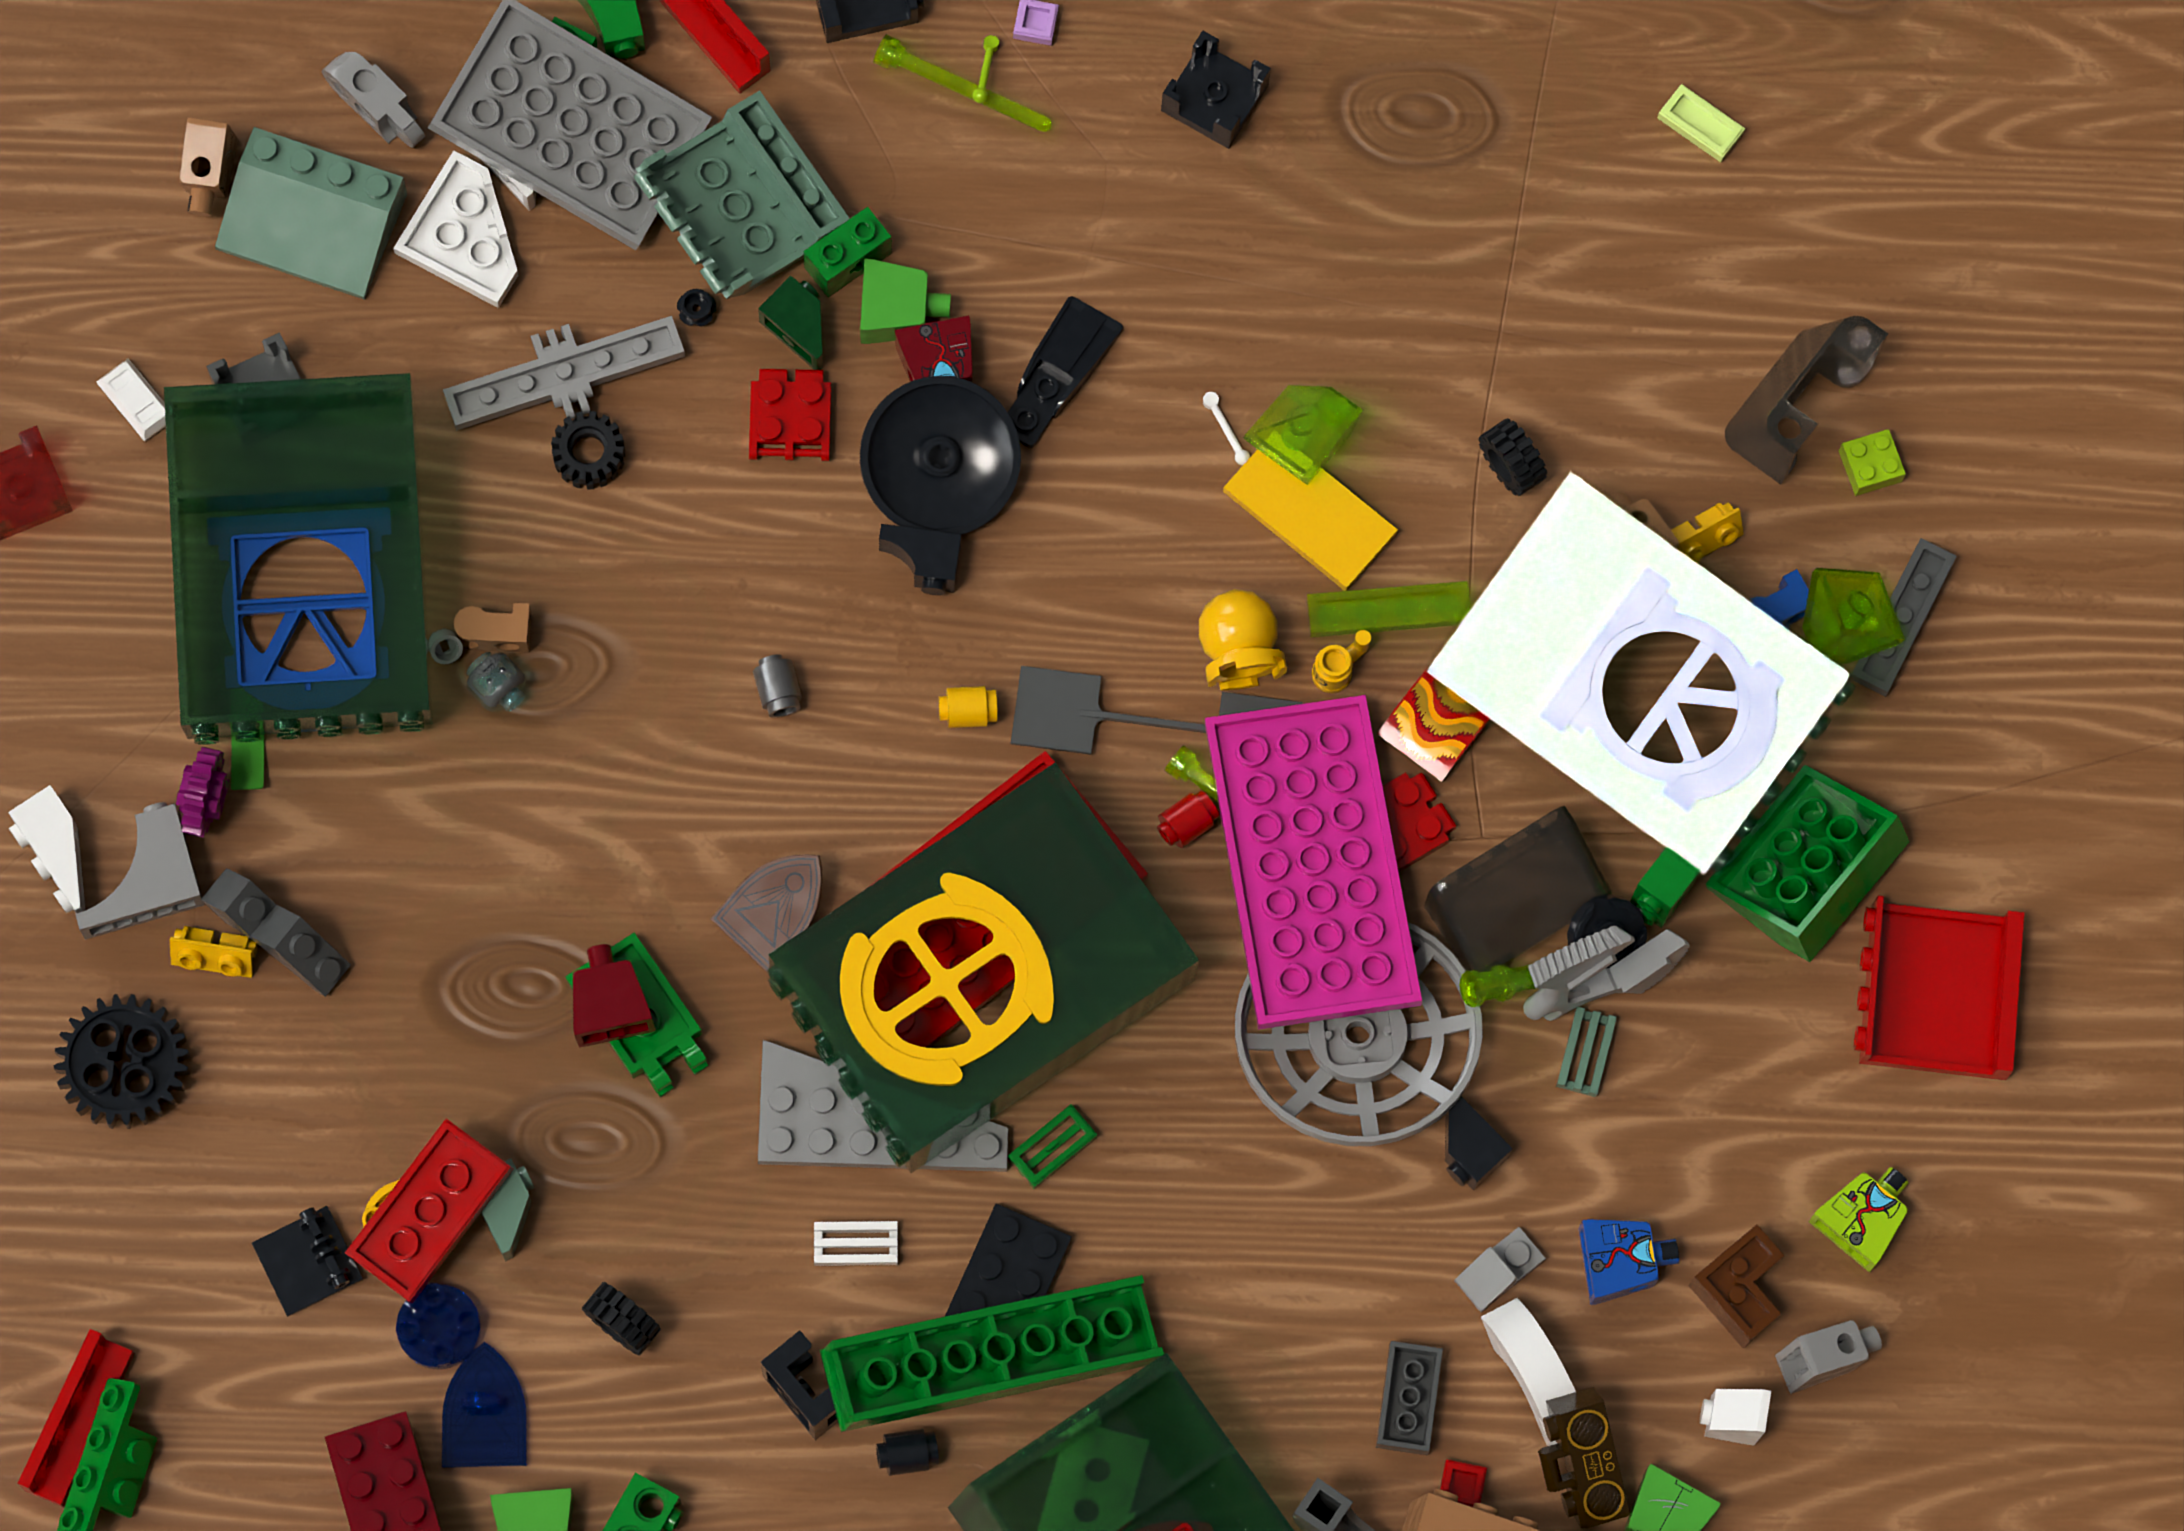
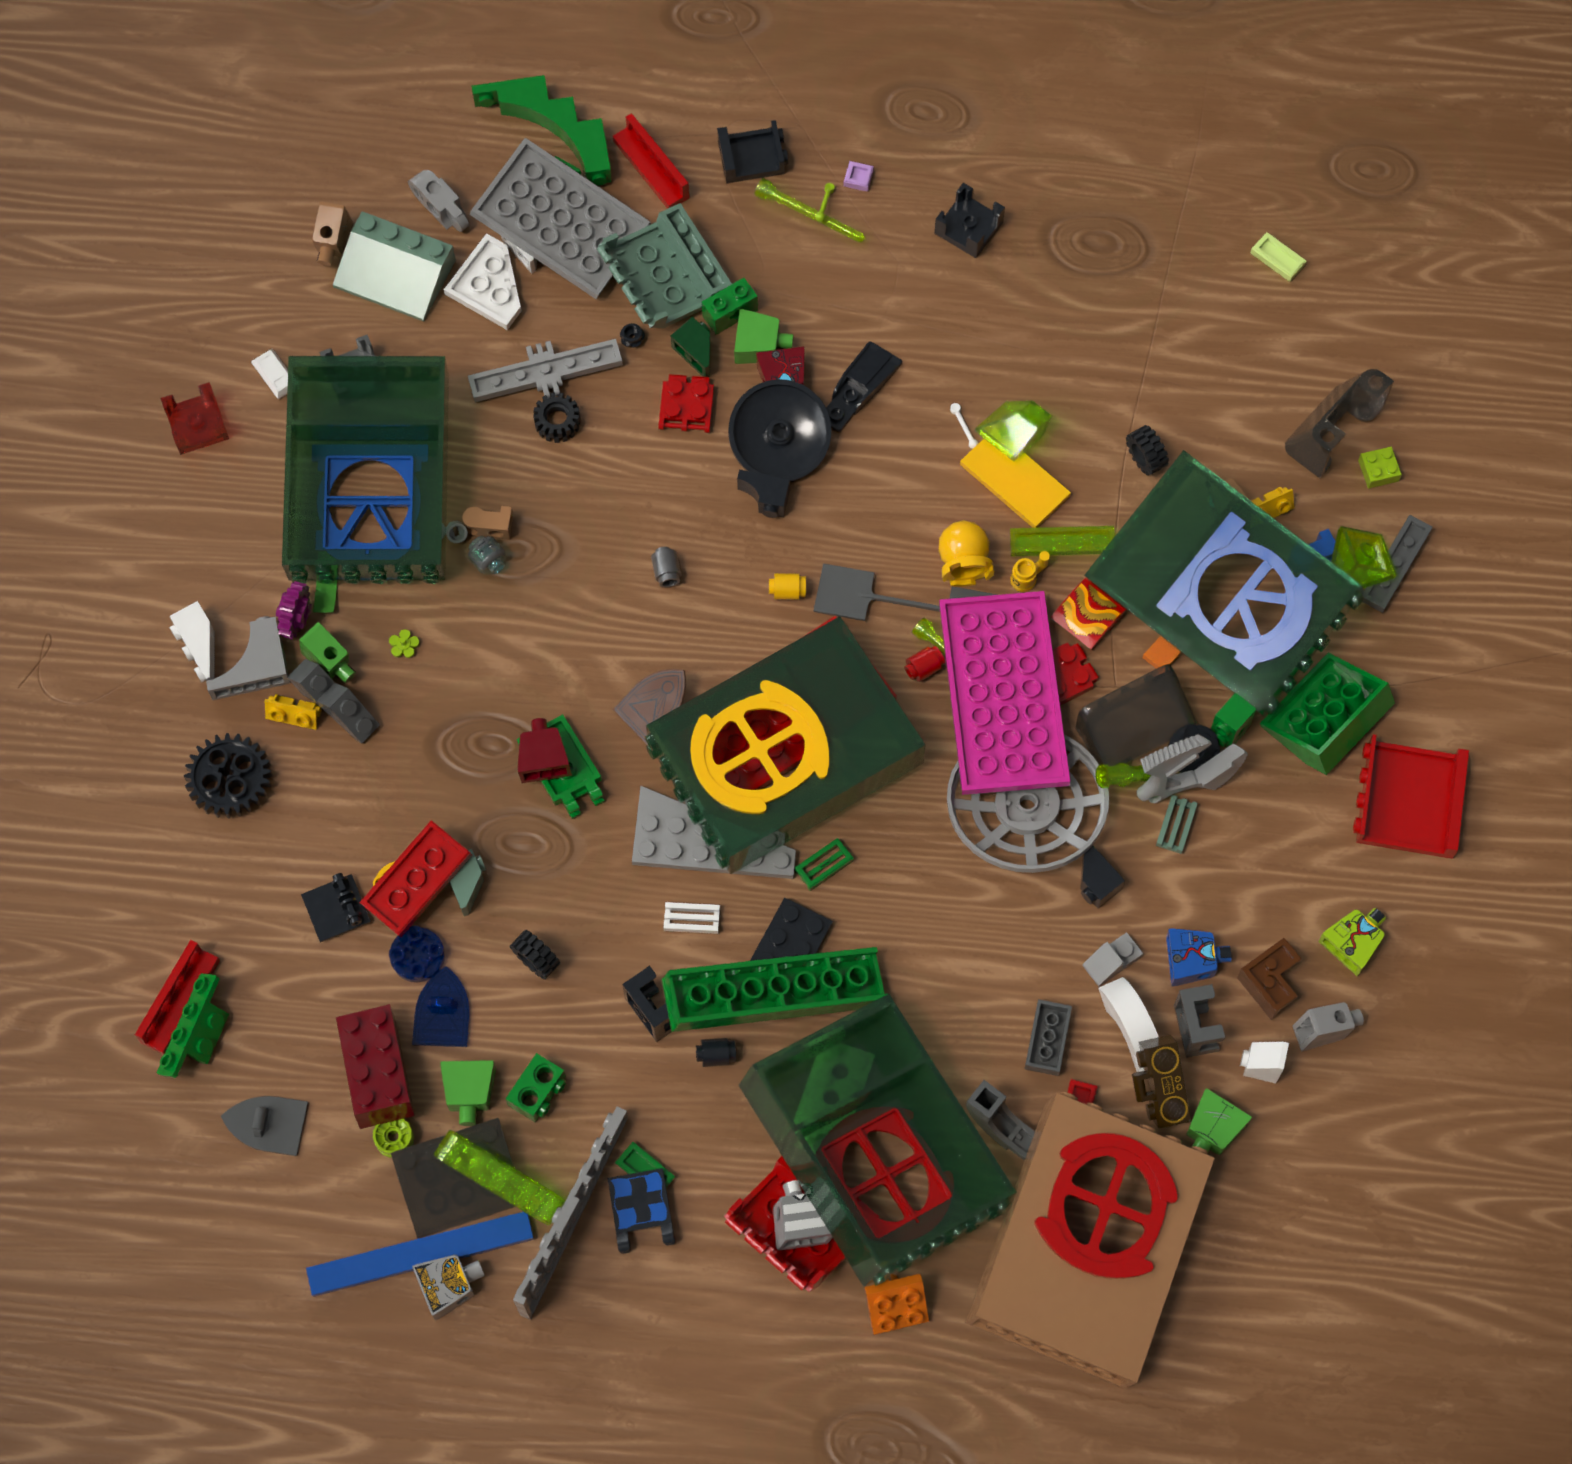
camera: 10 degrees right, 5 degrees down
(248, 846) = (319, 646): none -> bright green torso
(377, 832) = (404, 644): none -> lime plant
(1549, 785) = (1161, 653): none -> orange tile
(1621, 1366) = (1187, 1008): none -> dark grey panel

